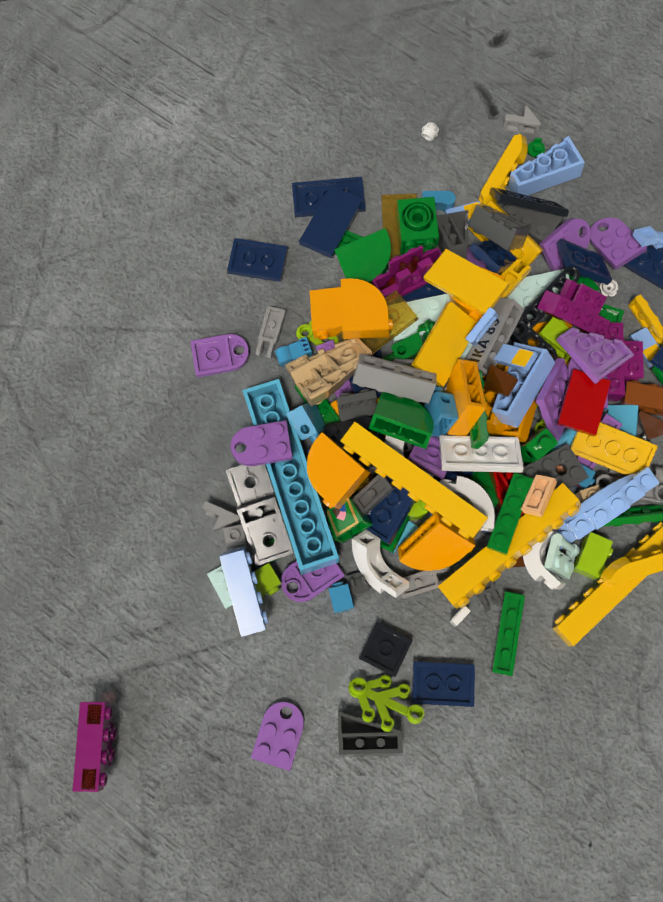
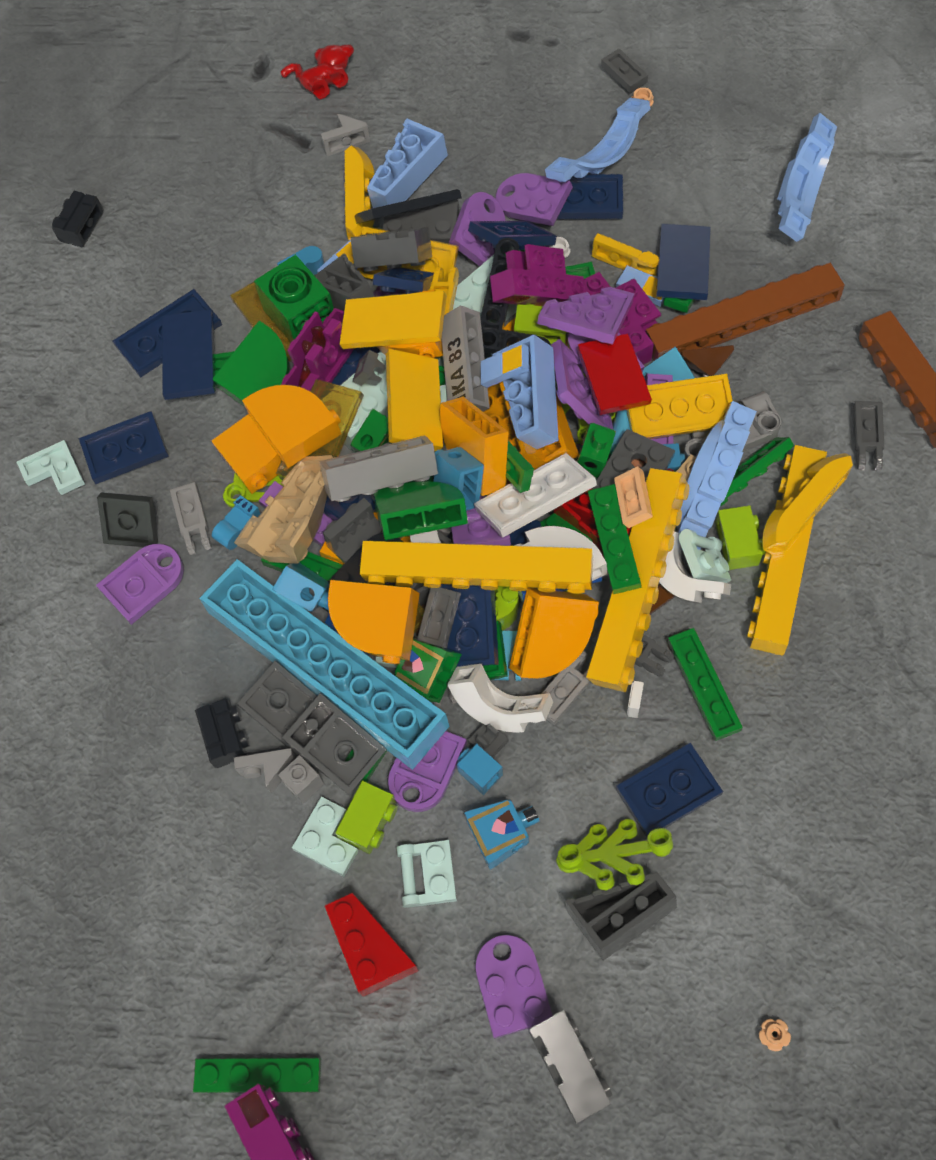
camera: 30 degrees left, 10 degrees down
(112, 690) = (241, 1075): none -> green plate
(208, 479) = (221, 732): none -> black brick
(212, 244) = (53, 462): none -> light aqua plate
(212, 660) = (367, 947): none -> red wedge
(231, 311) = (127, 519): none -> pearl dark grey tile
(243, 591) = (353, 828): light blue wedge -> none
(263, 444) = (266, 642): medium lavender plate -> none
(278, 643) = (437, 873): none -> light aqua plate
(281, 805) = (571, 1066): none -> wedge
(318, 83) = (77, 218): none -> black brick
(330, 642) = (500, 830): none -> dark azure torso
(385, 649) = (573, 794): black plate -> none
(408, 858) = (767, 1039): none -> light nougat plate
(426, 327) = (380, 397): green plate -> none
(430, 131) = (244, 199): white plate -> none
(430, 302) = (366, 368): none -> dark grey tile
(482, 326) = (444, 355): light blue tile -> none
(499, 381) = (504, 400): reddish brown slope -> none
(536, 147) = (377, 152): green plate -> none
(546, 63) = (330, 70): none -> red animal

